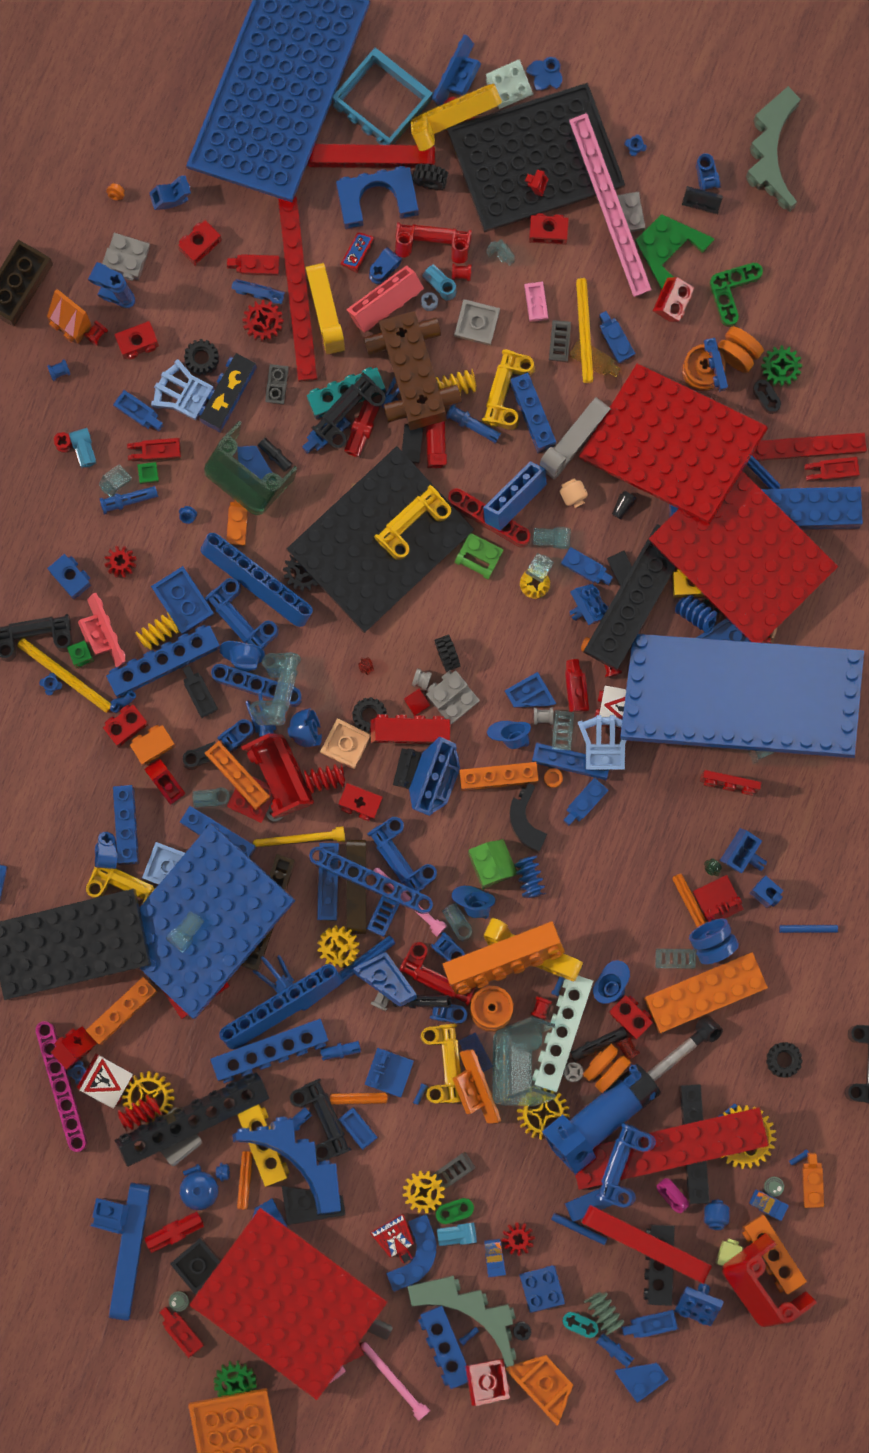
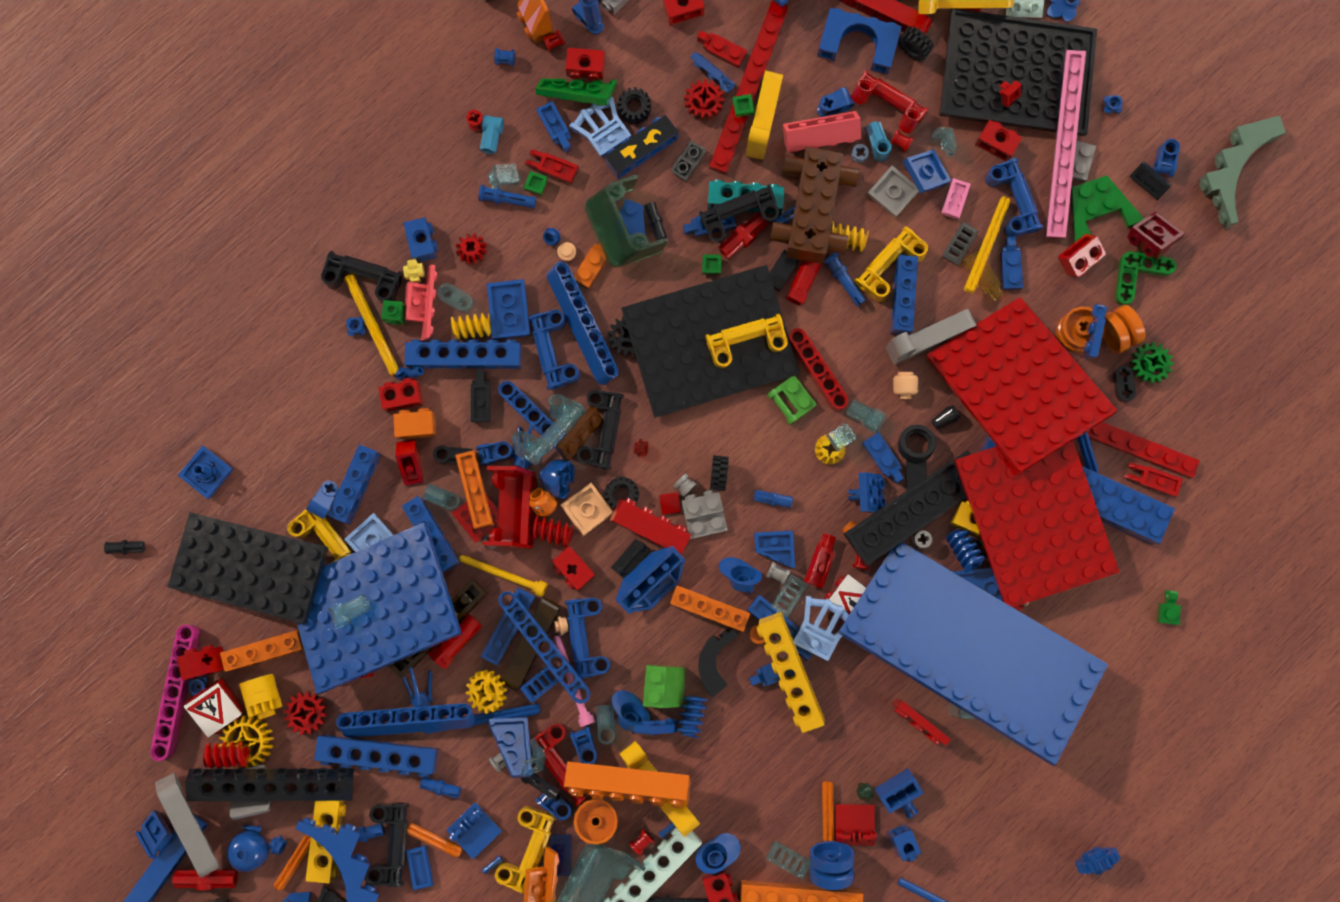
camera: 30 degrees right, 0 degrees up
(79, 607) = (414, 271): none -> light yellow gear
(116, 1171) = (185, 824): none -> light grey beam
(129, 611) = (455, 298): none -> clear light blue plate
(141, 369) = (577, 90): none -> green wing
(141, 1050) = (261, 696): none -> yellow gear
(180, 1039) = (307, 720): none -> red gear
(208, 521) = (566, 251): none -> light nougat plate
(242, 655) = (534, 384): blue piece -> none
(286, 925) = (448, 649): none -> red piece
(302, 310) = (743, 105): none -> green plate
(303, 757) = (542, 502): none -> orange head
(305, 679) = (579, 433): none -> reddish brown plate
(329, 665) = (608, 430): none -> black piece
(346, 469) = (711, 264): none -> green plate
(357, 251) = (818, 80): slope -> none
(374, 857) = (560, 625): none -> light nougat plate
(413, 977) = (538, 757): none -> clear light blue bracket
(498, 289) = (927, 171): none -> blue plate
(503, 900) = (656, 727): none -> blue hinge
(506, 652) = (773, 498): none -> blue axle
(515, 496) = (851, 361): blue brick -> none
(564, 758) = (805, 720): none -> yellow brick
(574, 254) = (1027, 220): none -> blue piece
(609, 527) = (918, 430): none -> black tyre
(655, 617) = (924, 534): none -> light grey bush
(729, 249) = (1154, 235): none -> dark red plate

